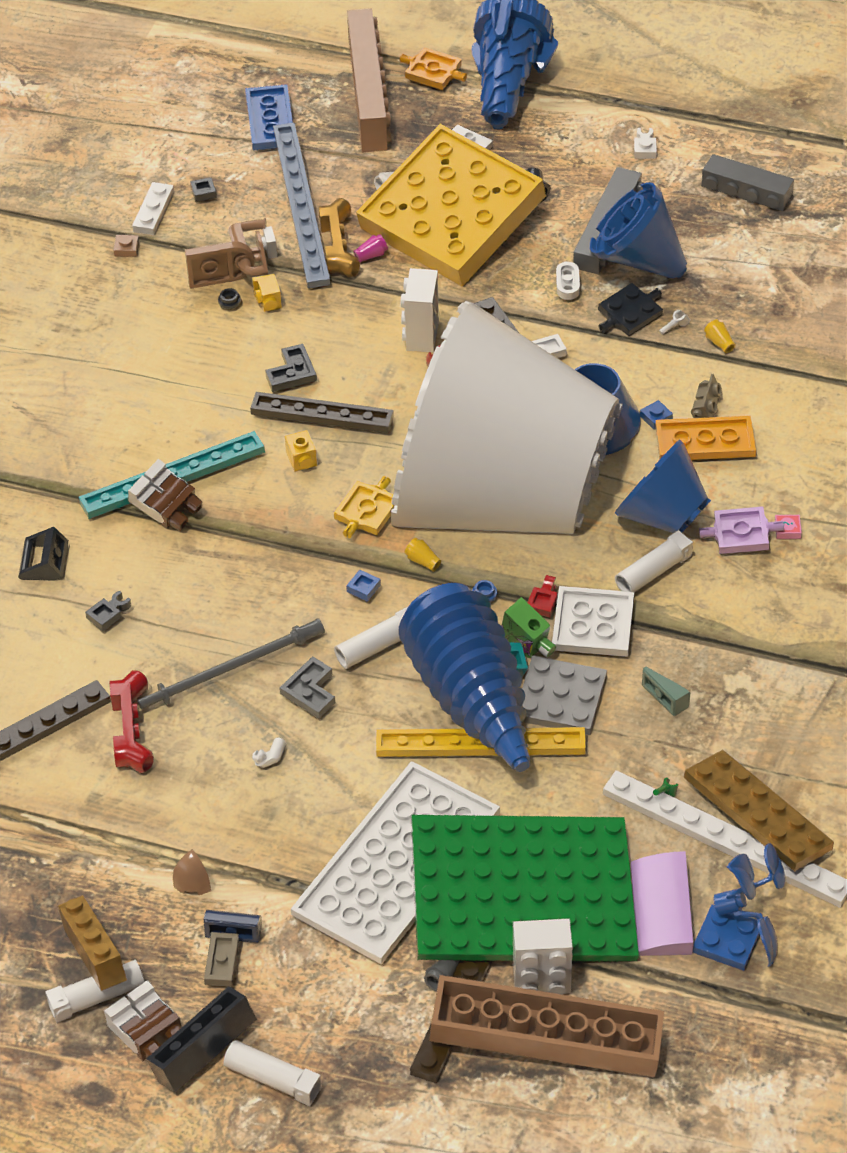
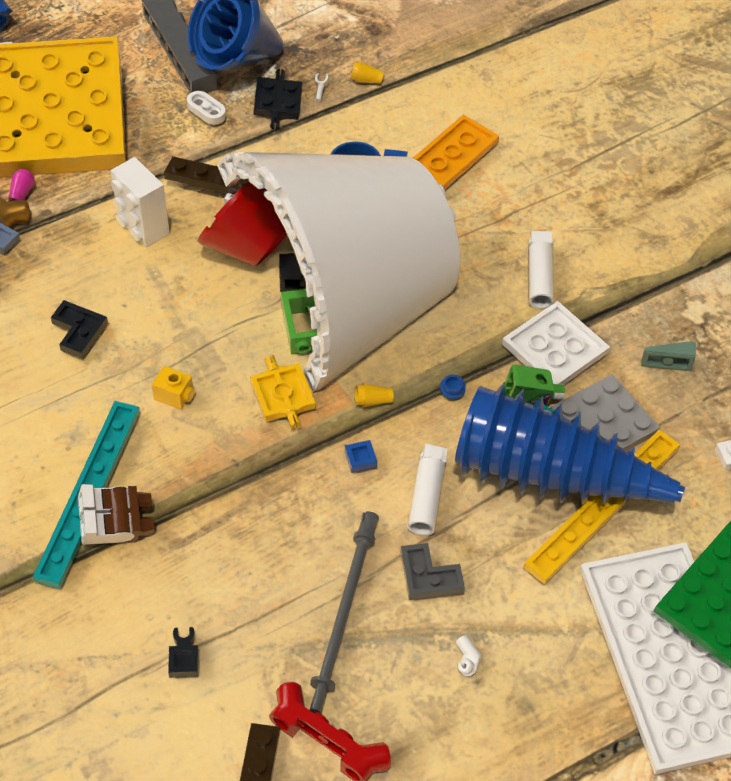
camera: 50 degrees left, 5 degrees up
(52, 558) = (80, 652): black tile -> none
(322, 412) = (146, 344): dark brown plate -> none
(544, 598) = (500, 356): red plate -> none
(668, 494) = (492, 206): blue cone -> none
(707, 398) = (412, 118): dark tan hinge -> none
(741, 530) = (562, 200): lavender plate -> none
(792, 527) = (584, 175): bright pink tile -> none

